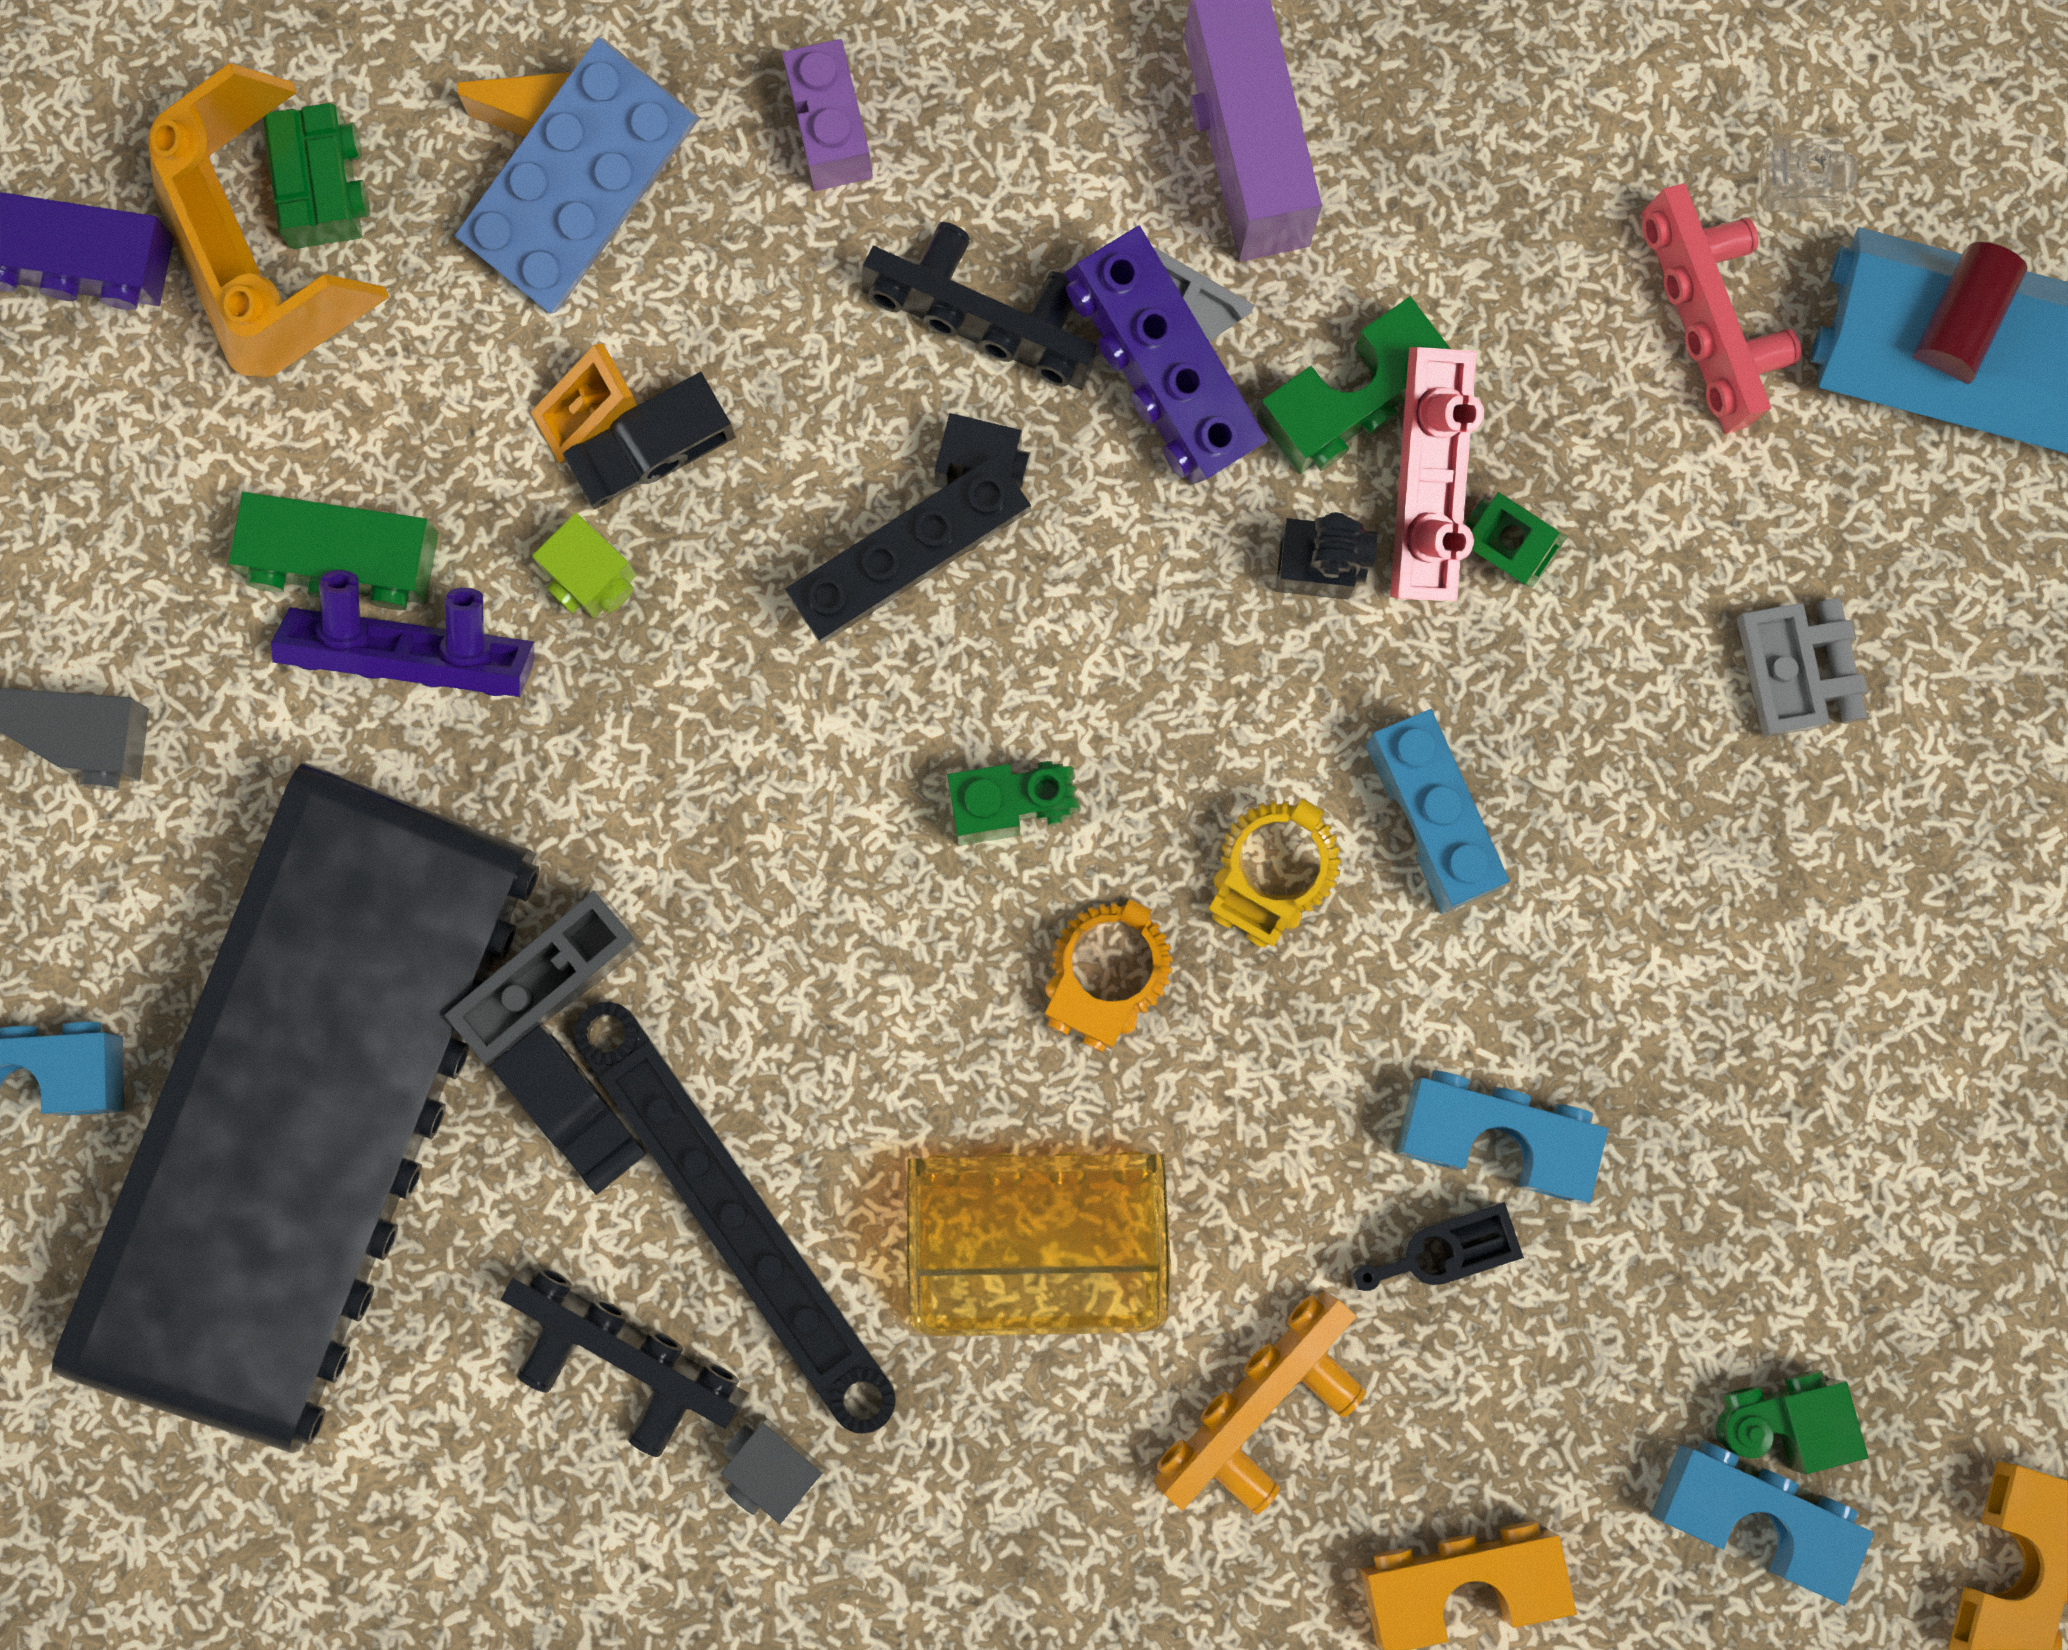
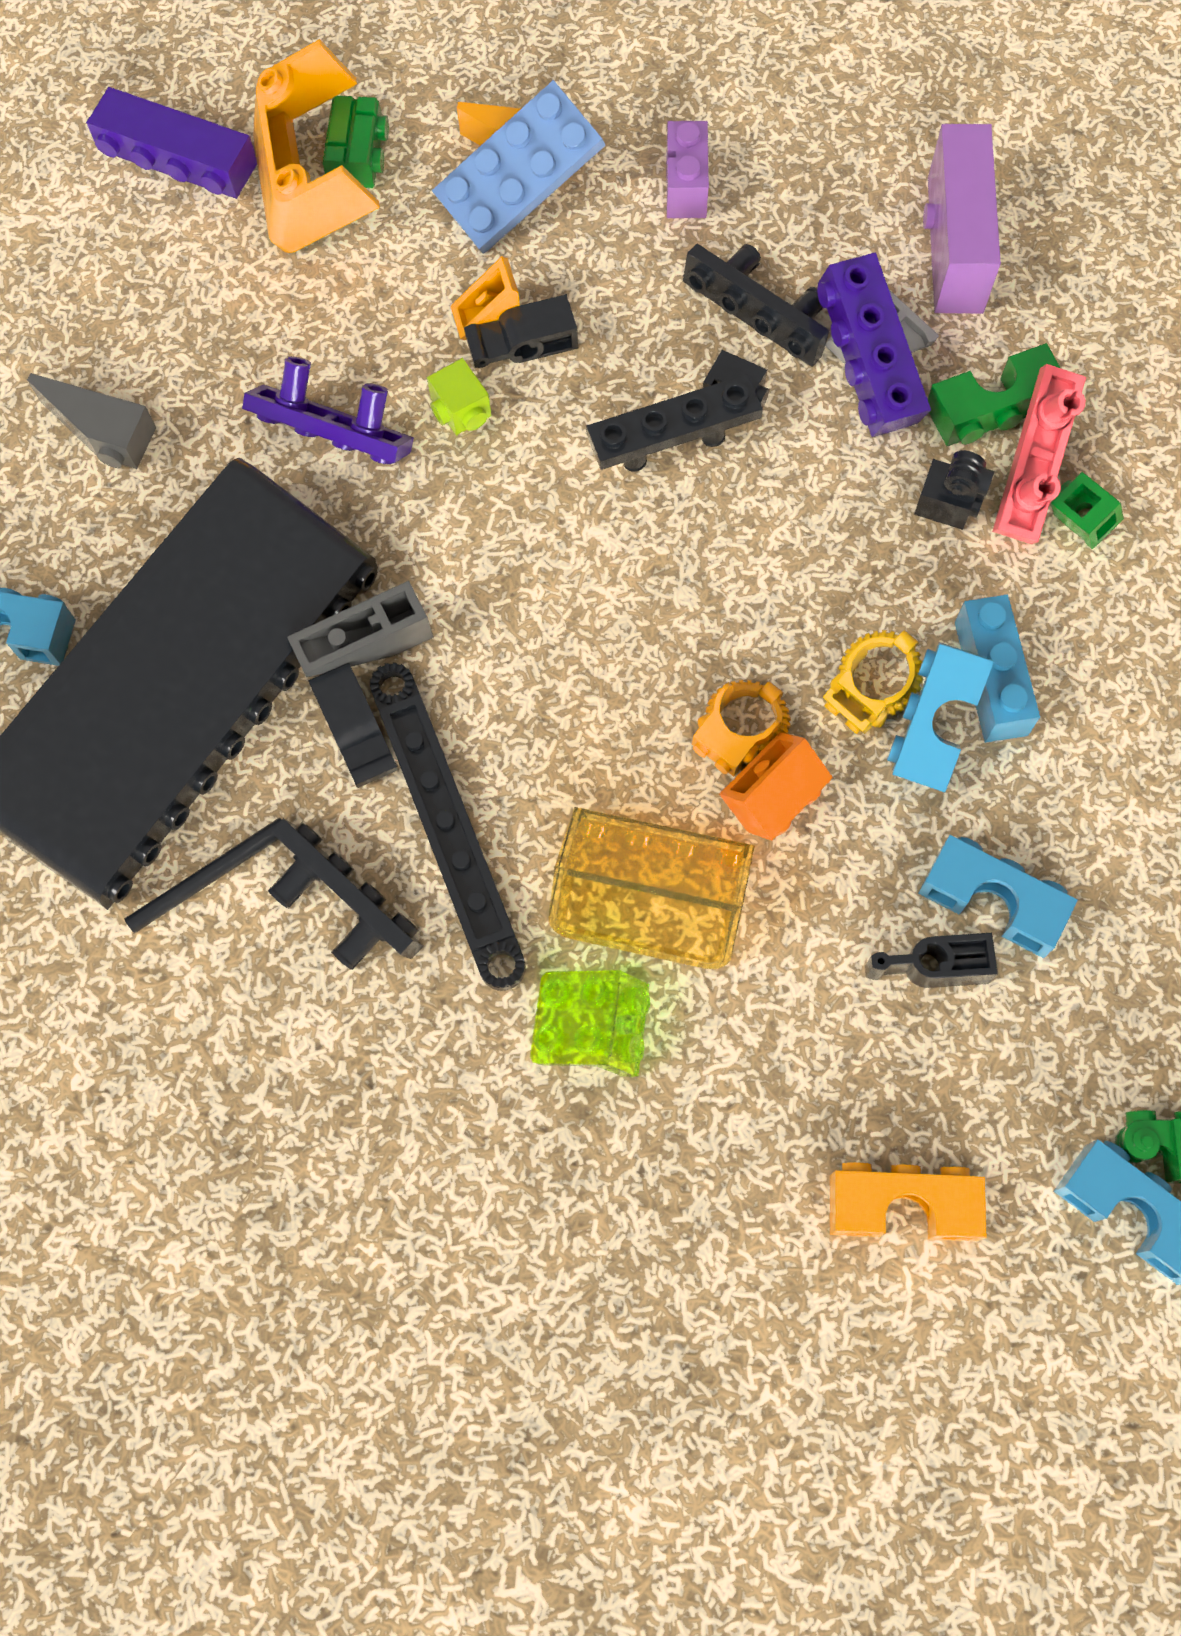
camera: 20 degrees right, 10 degrees down
(302, 540) = (335, 358): green brick -> none
(422, 1371) = (202, 878): none -> black bar
(768, 1470) = (423, 996): dark grey brick -> none
(994, 801) = (693, 592): green brick -> none
(1001, 1448) = (591, 1020): none -> clear neon green bracket
(1174, 1059) = (776, 786): none -> orange brick
(1233, 1417) = (757, 1040): light orange plate -> none
(1379, 858) = (921, 752): none -> arch

